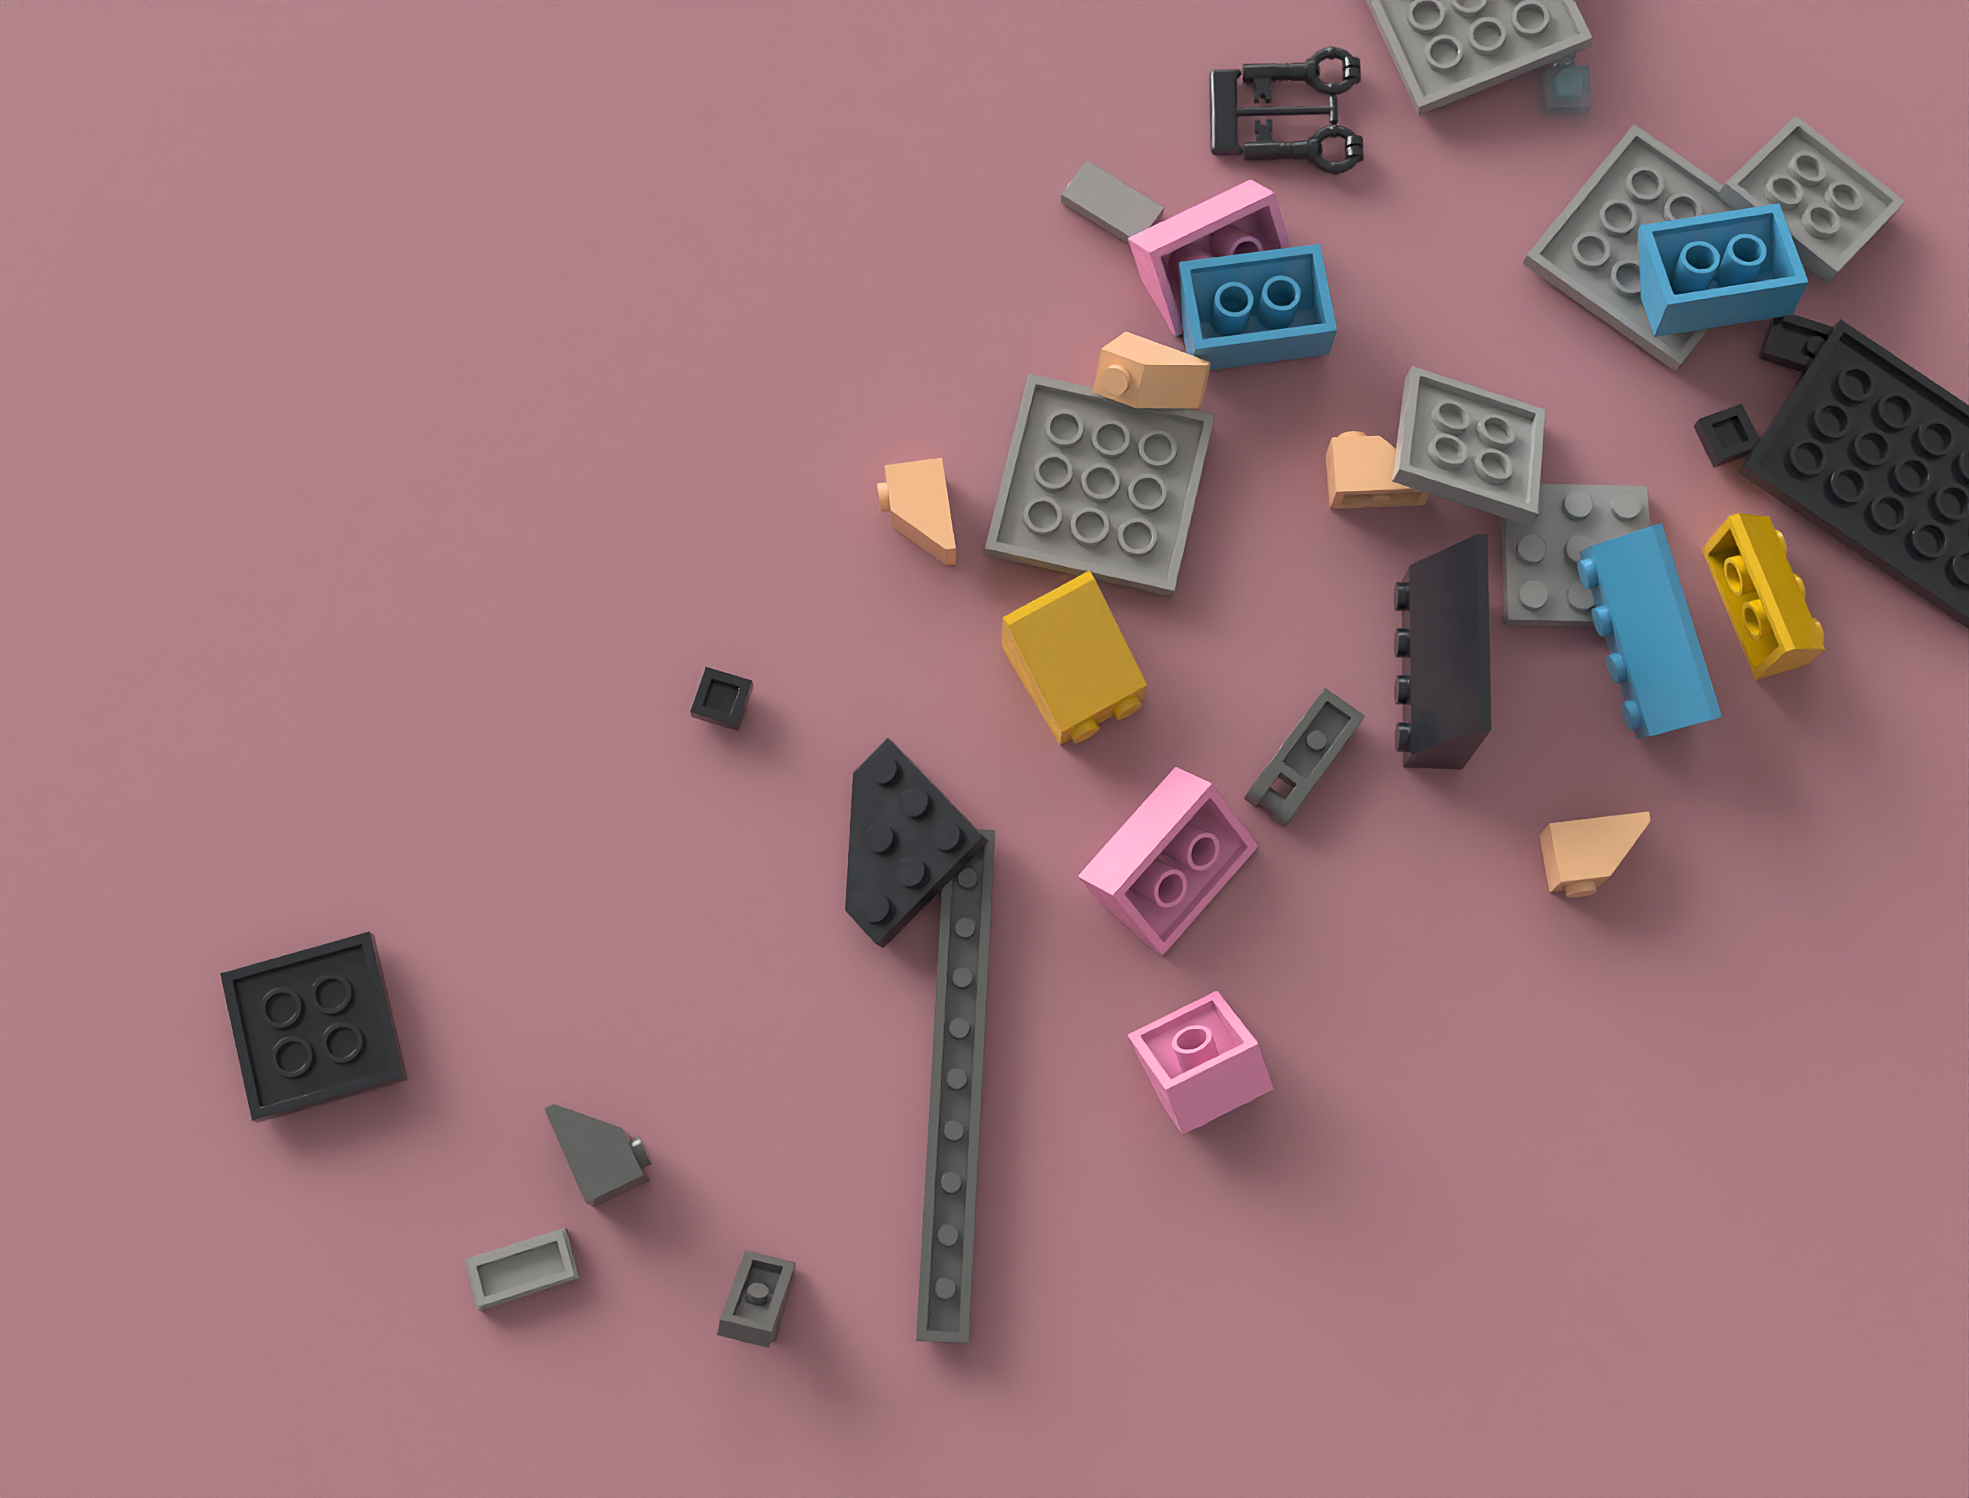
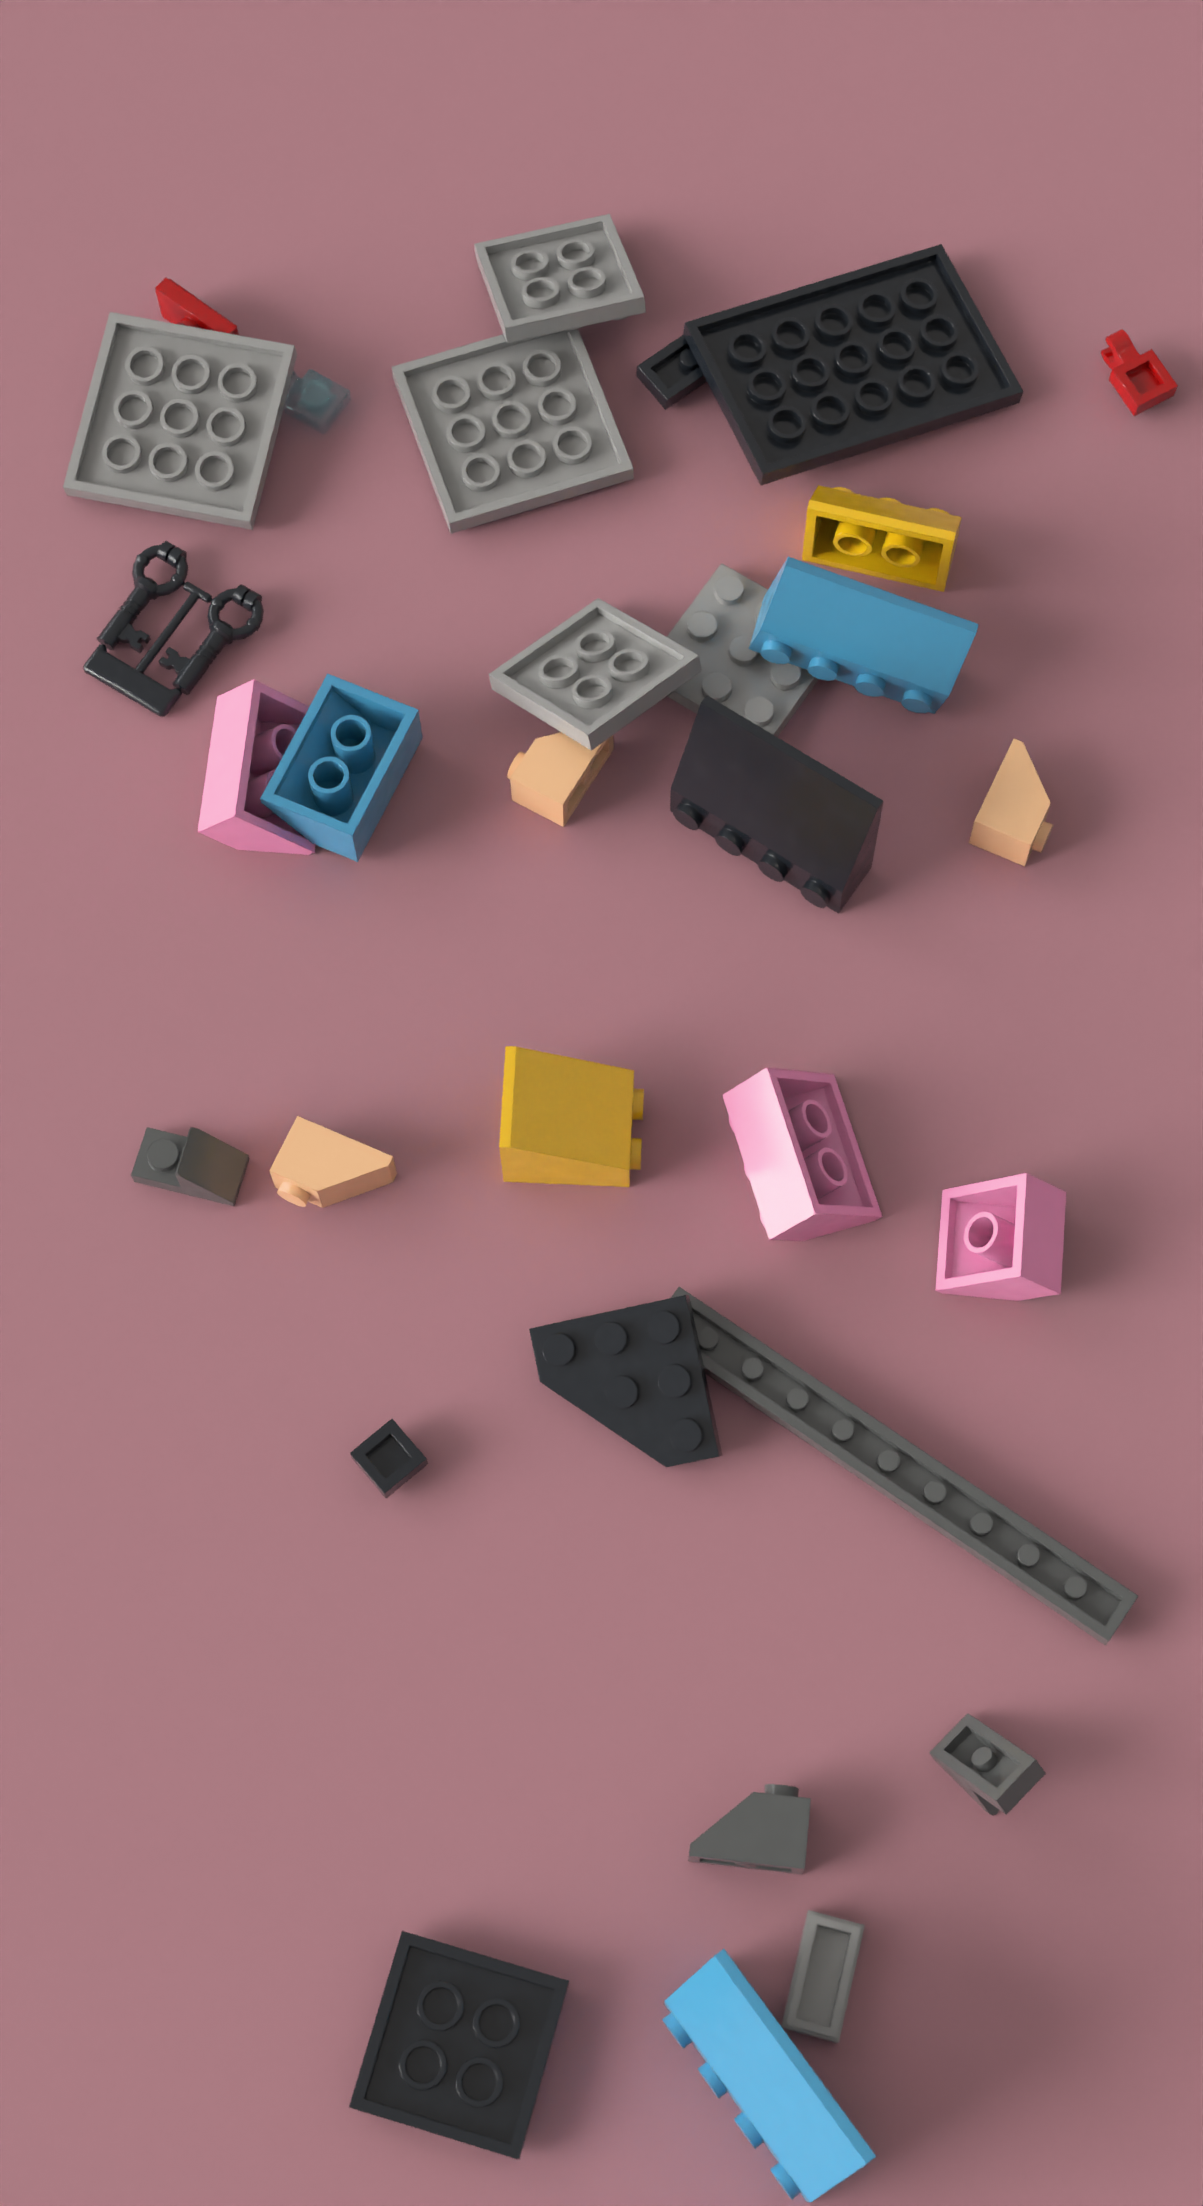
camera: 55 degrees left, 5 degrees down
(412, 1270) = (766, 2078): none -> slope
(860, 410) = (191, 1165): none -> dark grey slope
(1099, 486) = (411, 1001): light grey plate -> none
(1110, 202) = (149, 828): light grey tile -> none
(1150, 374) = (344, 890): light nougat slope -> none
(1305, 755) = (780, 984): dark grey plate -> none
(1719, 270) = (579, 382): dark azure slope -> none
(1726, 435) = (719, 474): black plate -> none

